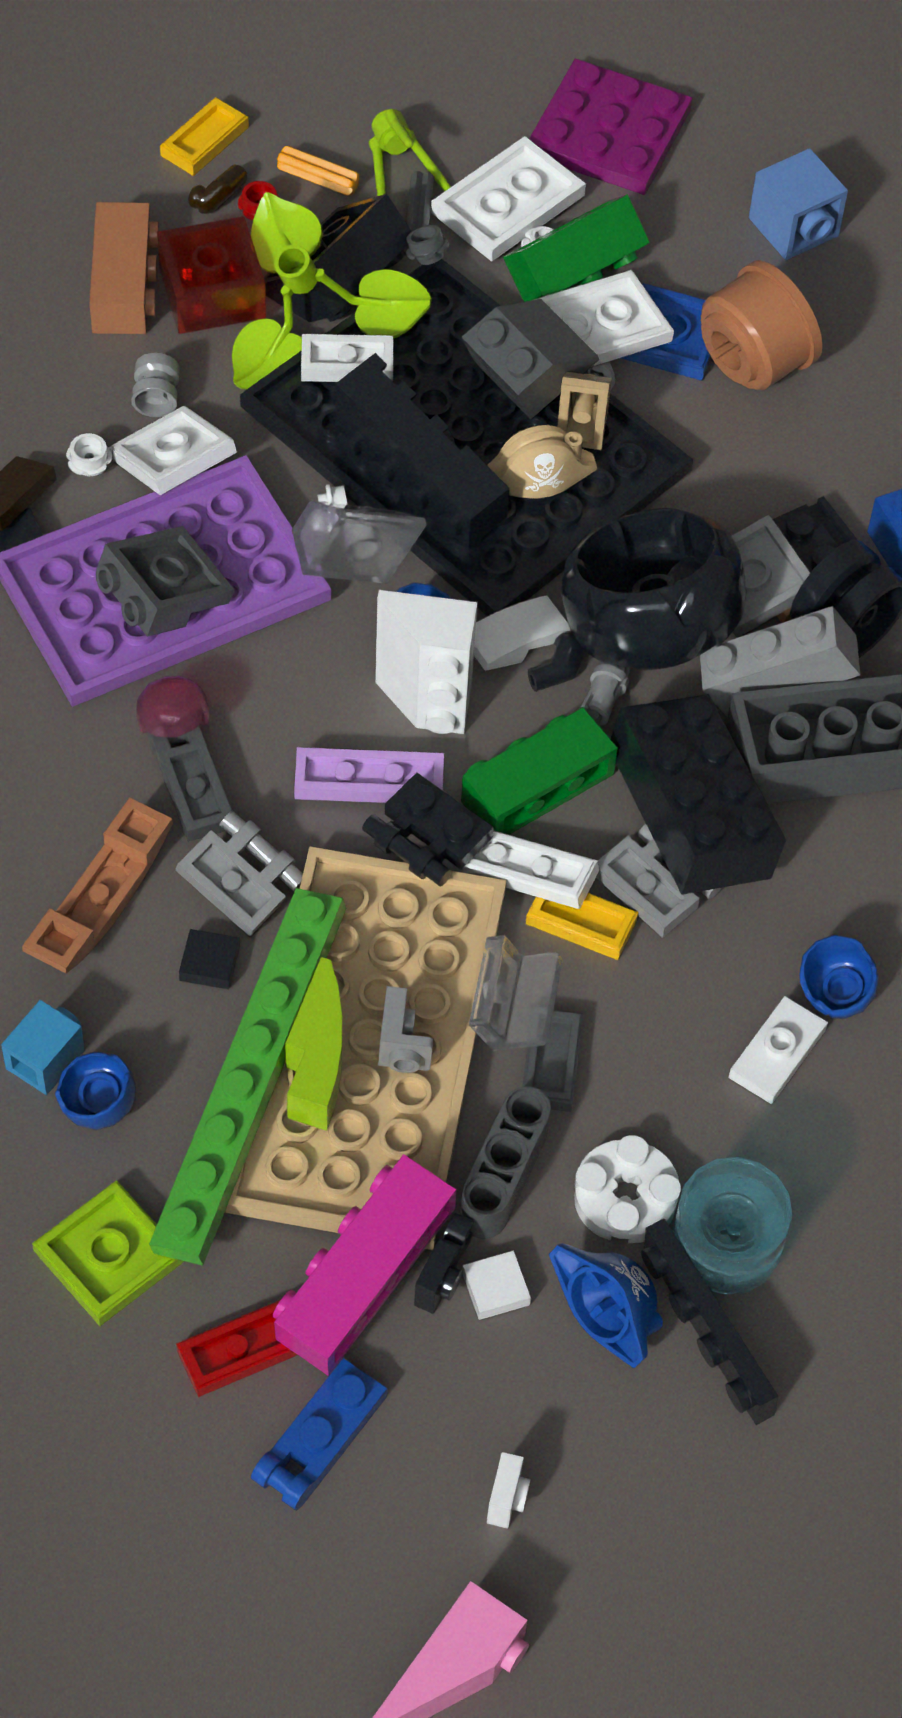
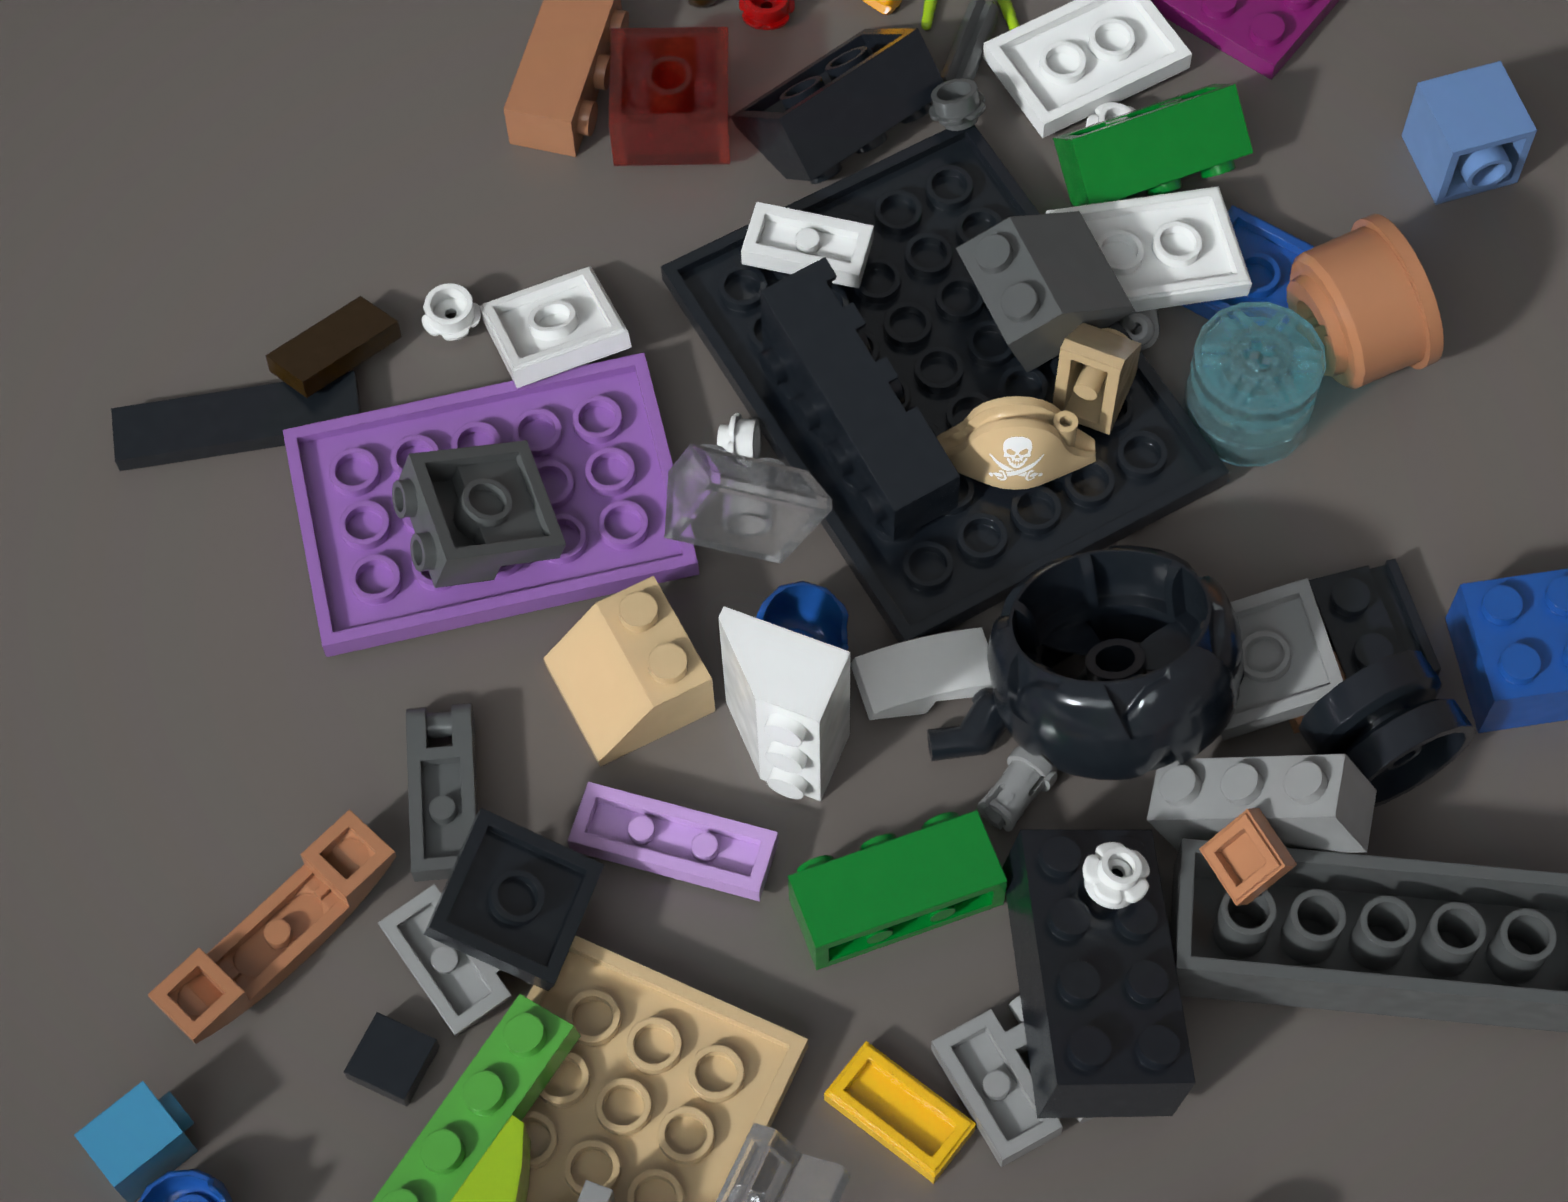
camera: 20 degrees right, 5 degrees up
(155, 384) = (559, 235): light grey wheel -> none
(172, 707) = (443, 691): clear pink hair -> none
(274, 826) = (514, 899): none -> black plate
(284, 241) = (774, 61): lime plant -> none
(304, 670) = (630, 672): none -> tan slope
(434, 819) = (737, 933): black plate -> none
(534, 869) = (836, 1018): white tile -> none
(696, 394) = (1254, 382): none -> clear light blue wheel
(696, 720) = (1108, 888): none -> white plate
(782, 690) = (1247, 856): none -> nougat tile

